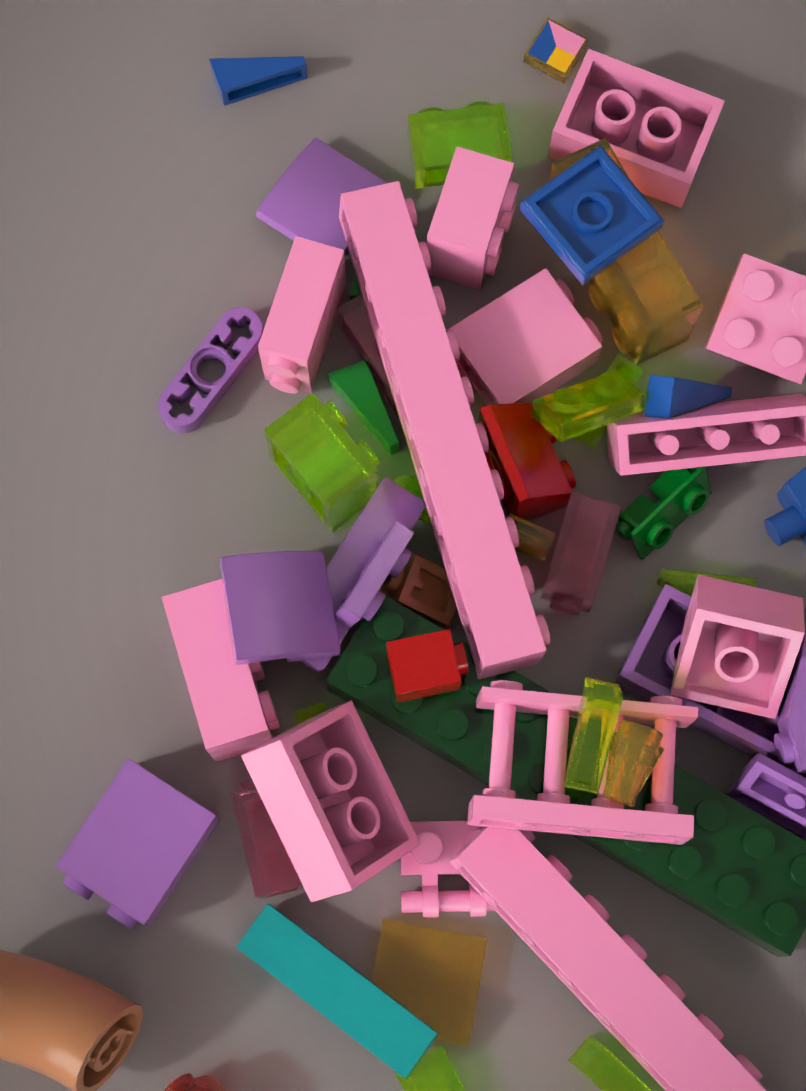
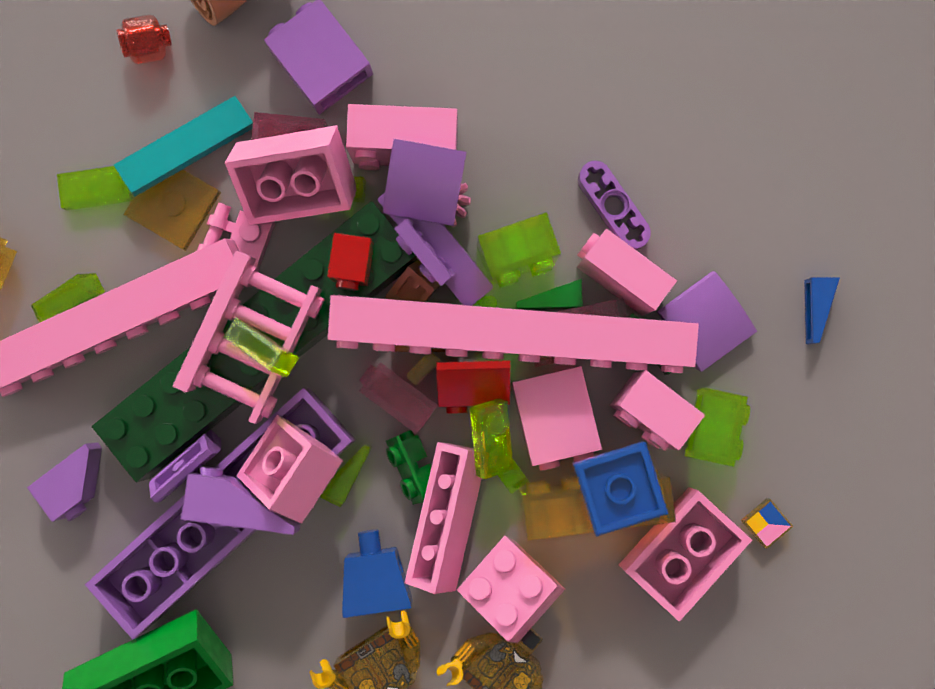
camera: 110 degrees right, 10 degrees up
(630, 761) = (233, 364): clear yellow cone -> none
(675, 396) = (479, 503): blue piece -> none

